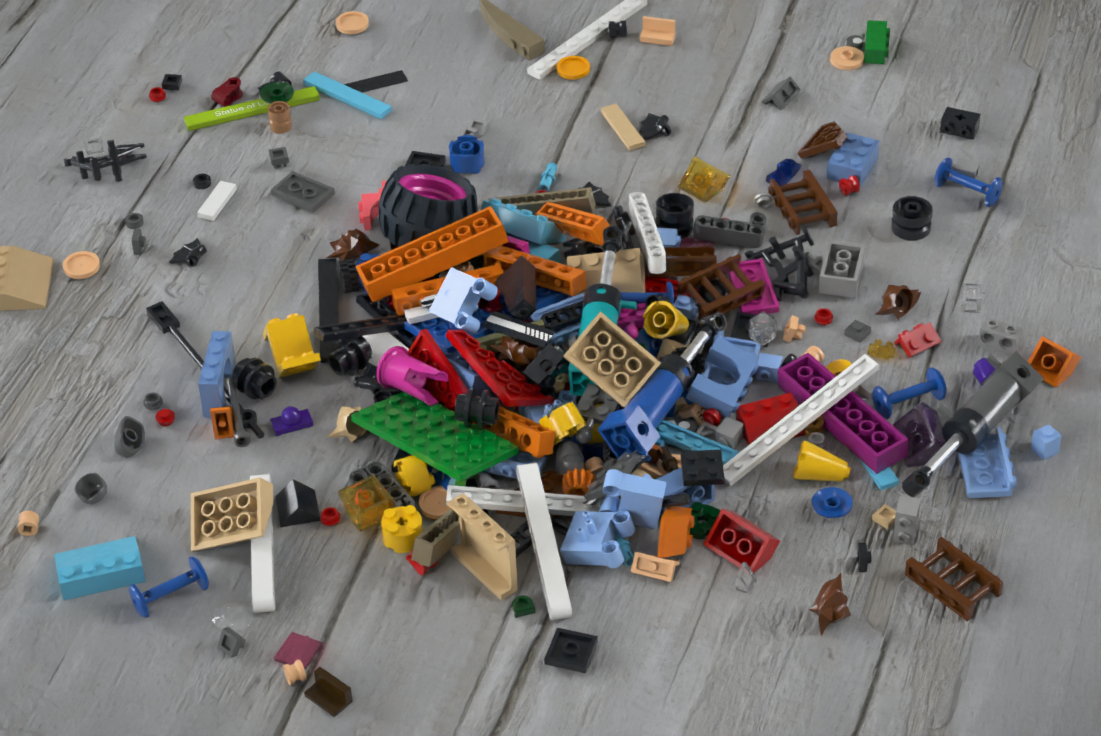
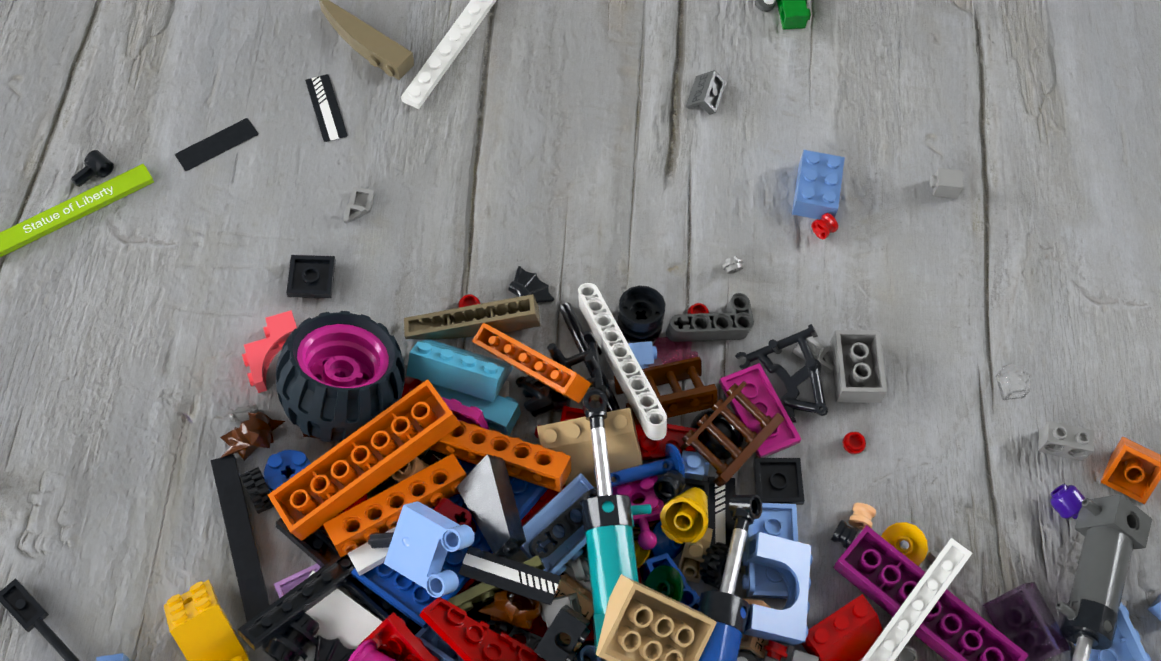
camera: 20 degrees left, 20 degrees up
(189, 253) = (36, 478): black arm -> none
(202, 181) = (29, 346): black tile -> none
(216, 200) = (55, 378): white tile -> none
(227, 92) = (33, 195): dark red piece -> none
(276, 92) = (95, 181): dark green dish -> none
(278, 156) = (122, 292): dark grey tile -> none
(279, 117) = (109, 226): medium nougat wheel -> none
(302, 191) = (165, 345): dark grey plate -> none
(347, 95) = (188, 170): medium azure tile -> none
(352, 22) = (169, 52): light nougat piece -> none
(465, 71) = (326, 108): none -> black sticker
(466, 154) = (361, 252): blue brick -> none
(548, 177) = (469, 258): medium azure pin -> none
(573, 67) = (455, 86): light orange piece -> none
(617, 29) = (493, 20): black wheel -> none
(622, 127) = (537, 171): tan tile -> none
(655, 125) = (574, 164): black arm -> none
(657, 31) = (540, 17): light nougat panel -> none
(703, 180) = (655, 245): clear yellow slope -> none
(762, 328) = (798, 490): clear brick -> none
(768, 367) = (821, 543): light blue brick -> none
(784, 172) = (742, 215): clear blue slope -> none
(793, 329) = (826, 473): light nougat tile -> none
(814, 192) = (788, 244): reddish brown fence -> none
(824, 139) = (780, 162): reddish brown plate -> none
(847, 58) = (763, 26): light nougat piece -> none
(857, 331) = (898, 457): dark grey plate -> none
(881, 352) = (934, 486): clear yellow piece -> none
(883, 401) = (1020, 539): blue hose -> none
(898, 300) = (935, 405): reddish brown hair -> none
(911, 218) = (911, 268): black wheel -> none
(919, 339) = (973, 460): bracket -> none
(944, 170) = (959, 203): blue hose -> none
(960, 123) = (918, 109): black brick -> none

